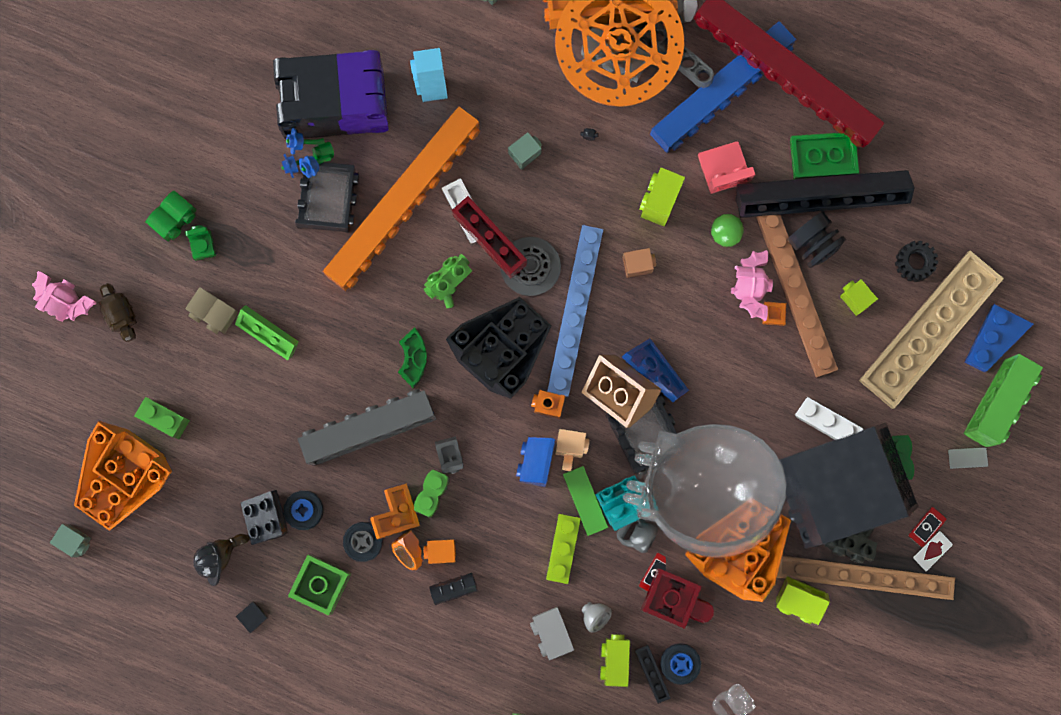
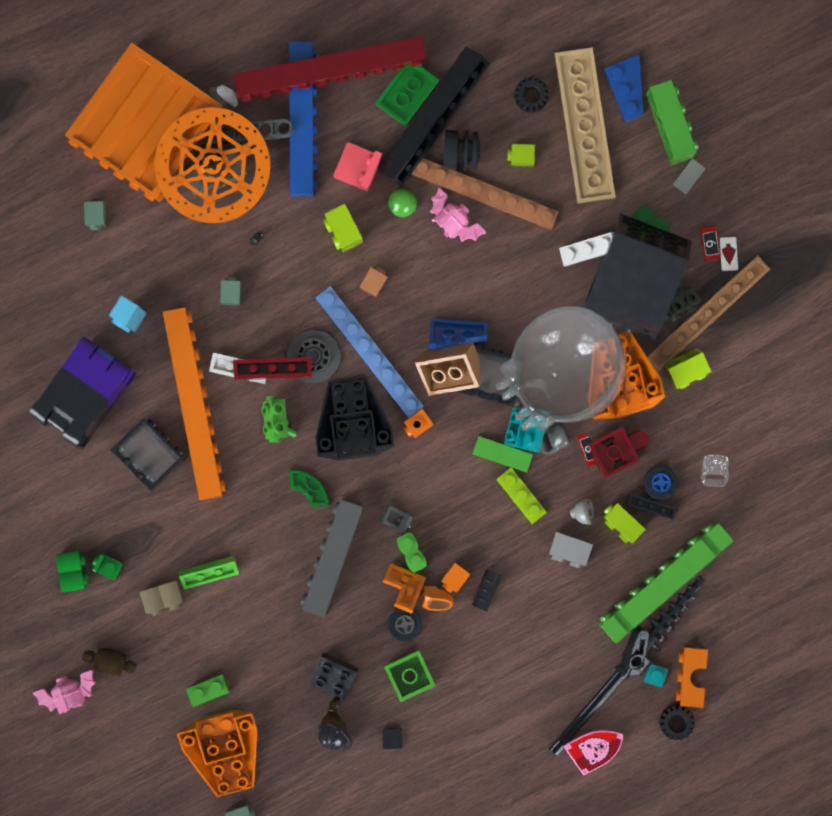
camera: 45 degrees left, 5 degrees up
(310, 164) = (119, 448): blue plant -> none
(310, 506) = (350, 646): black wheel -> none
(536, 461) = (449, 465): blue slope -> none
(571, 445) = (458, 433): light nougat brick -> none
(776, 313) = (485, 219): orange tile -> none

